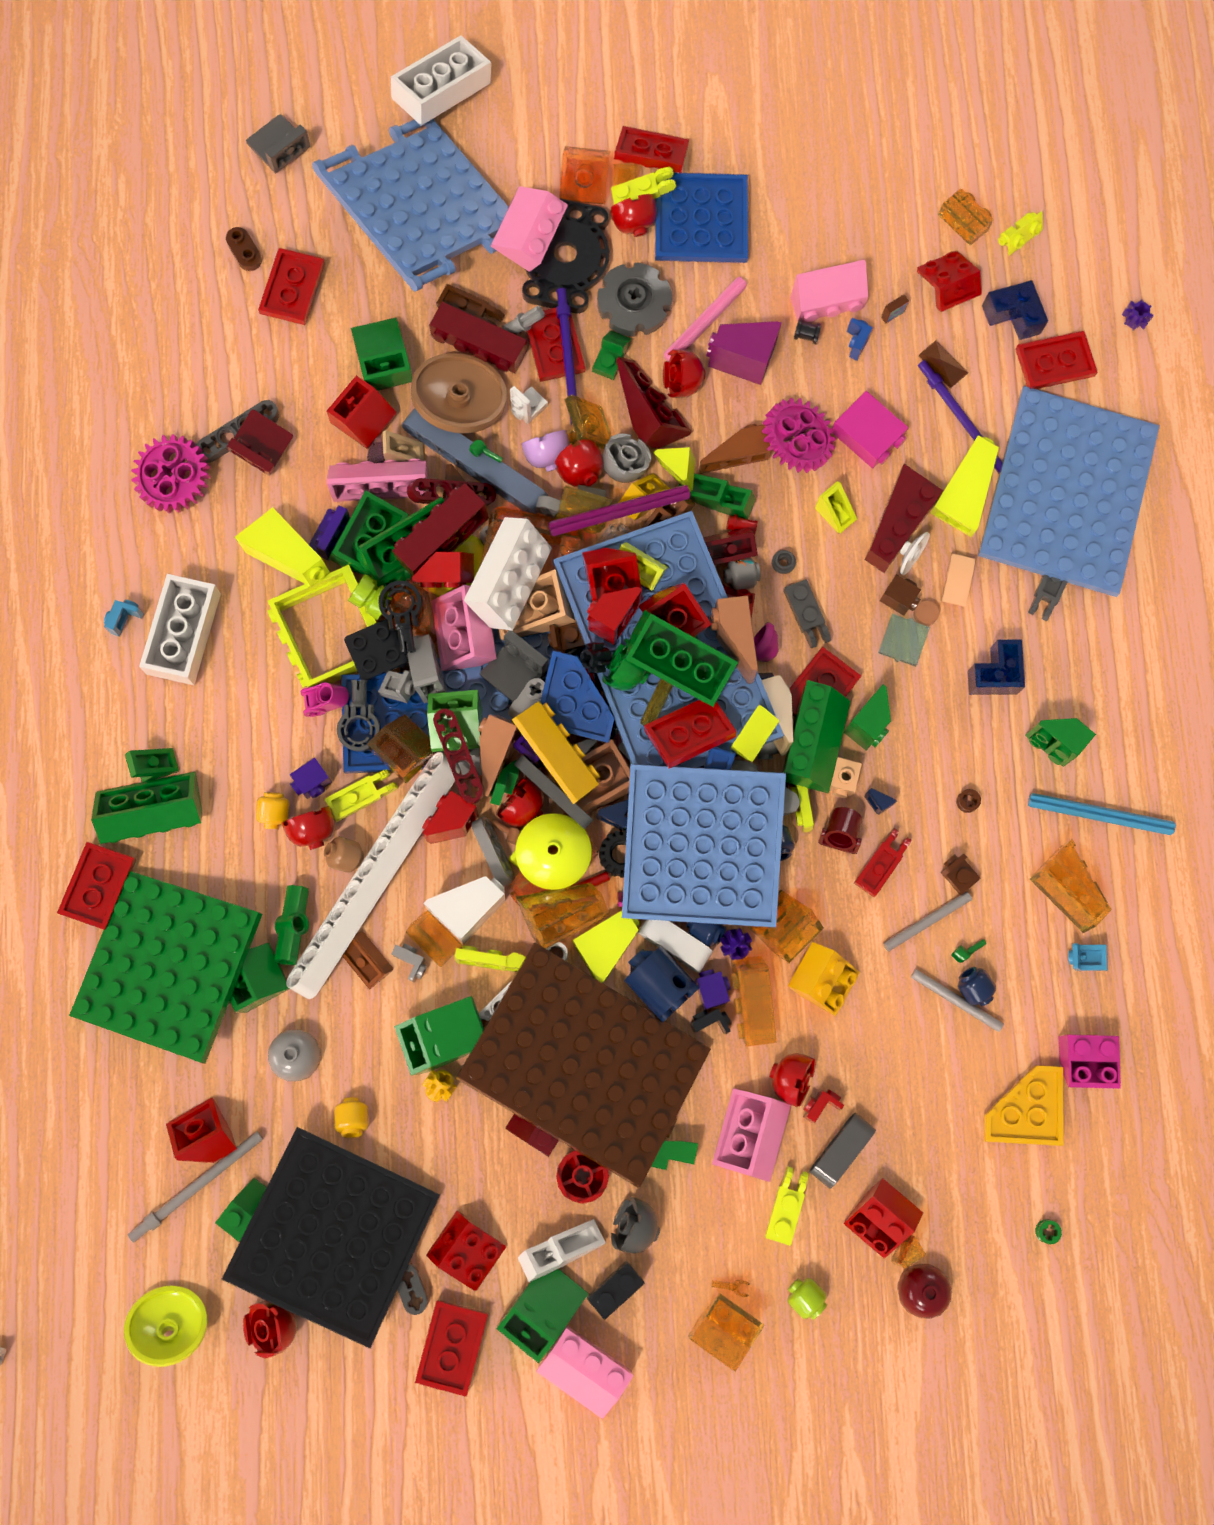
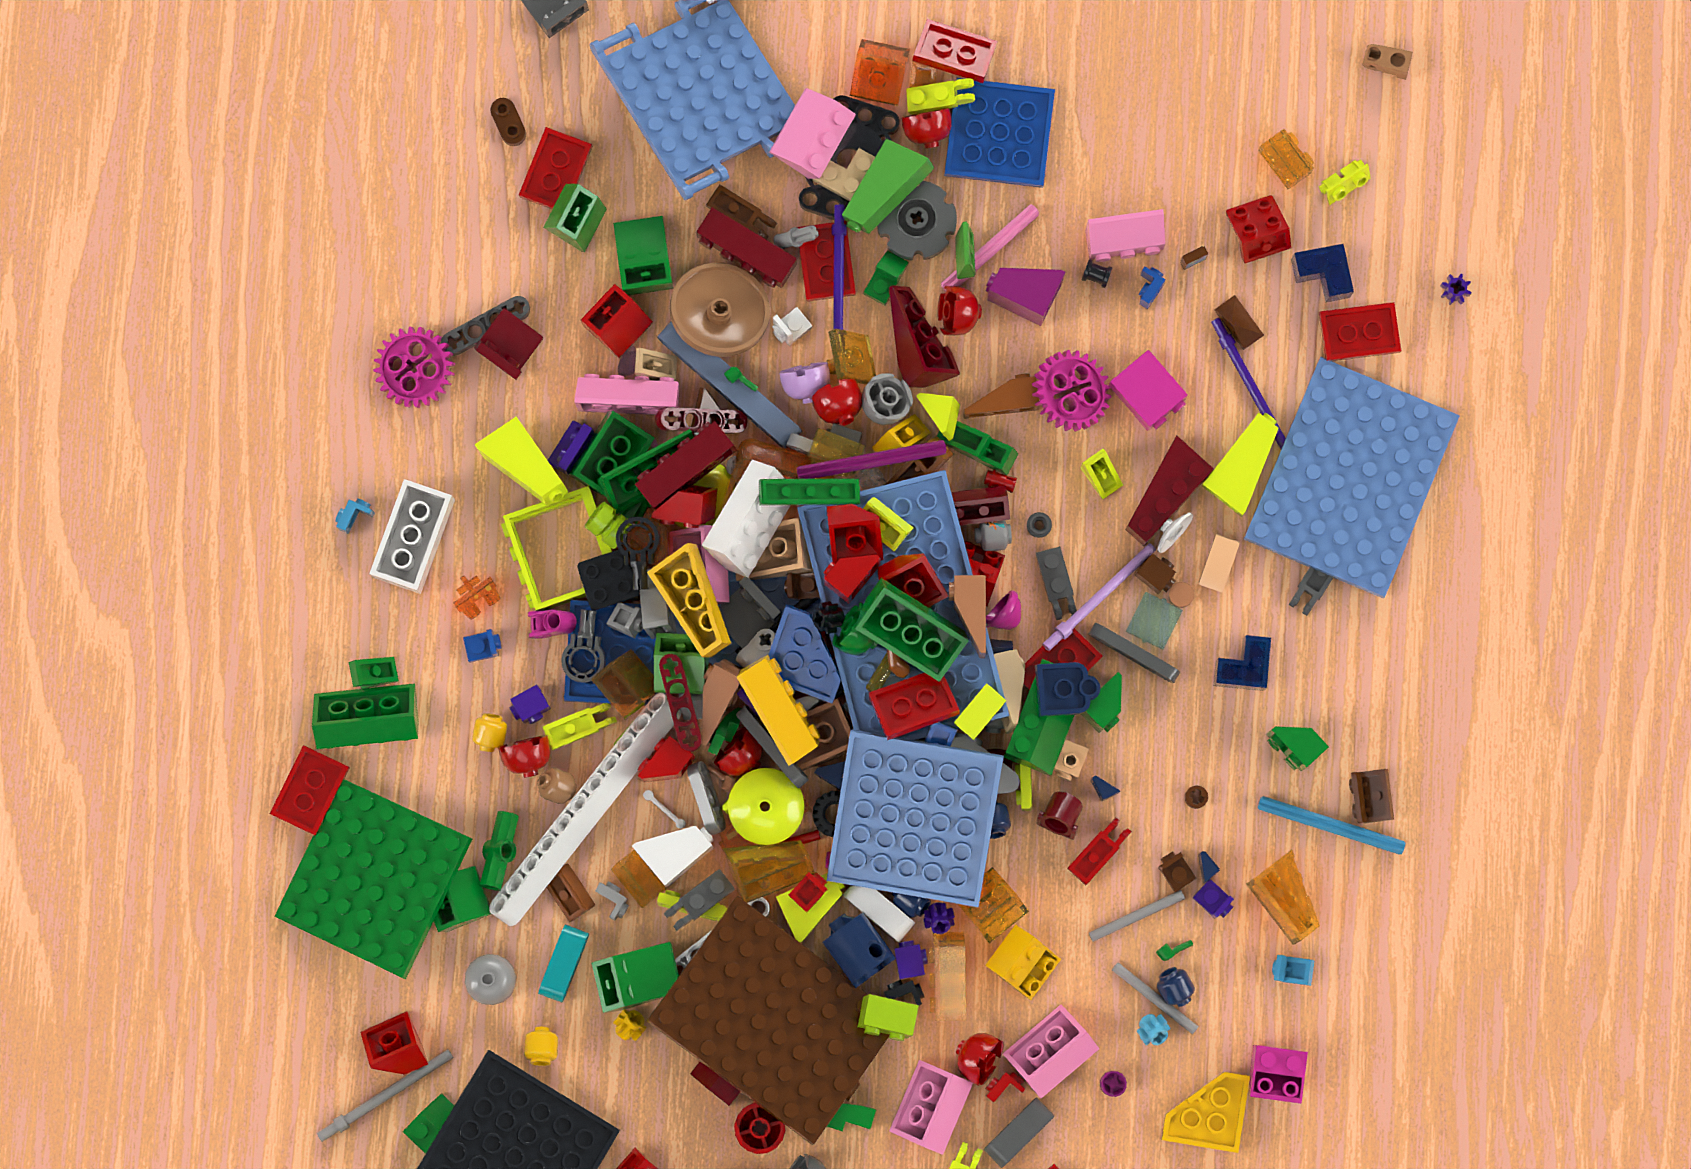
camera: 15 degrees right, 5 degrees up
(240, 689) = (467, 602): none -> clear orange hips
(259, 728) = (482, 646): none -> blue bracket
(314, 321) = (576, 216): none -> green slope
(366, 1031) = (563, 963): none -> teal beam
(436, 856) = (648, 795): none -> white hinge
(457, 650) = (690, 597): none -> yellow wedge
(498, 949) = (701, 898): none -> dark grey hinge
(562, 539) = (808, 492): none -> green tile
(567, 270) = (846, 181): none -> tan plate
(603, 266) = (885, 185): none -> bright green slope
(605, 929) = (809, 891): none -> red bracket
(668, 694) = (898, 665): none -> dark orange arm
(682, 322) = (965, 252): none -> bright green slope
(699, 1047) = (888, 1017): none -> lime brick
(823, 652) = (1064, 629): none -> lavender bar
(834, 704) = (1064, 688): none -> dark blue plate
(863, 1064) = (1051, 1051): none -> bright pink slope
(890, 670) = (1134, 653): none -> dark grey beam
(934, 1091) = (1116, 1086): none -> magenta wheel
(961, 1031) = (1153, 1029): none -> medium azure gear
(989, 865) = (1207, 866): none -> dark blue slope
(1000, 897) = (1213, 899): none -> dark purple bracket
(1044, 125) = (1388, 60): none -> medium nougat leg
(1137, 781) = (1371, 796): none -> reddish brown bracket

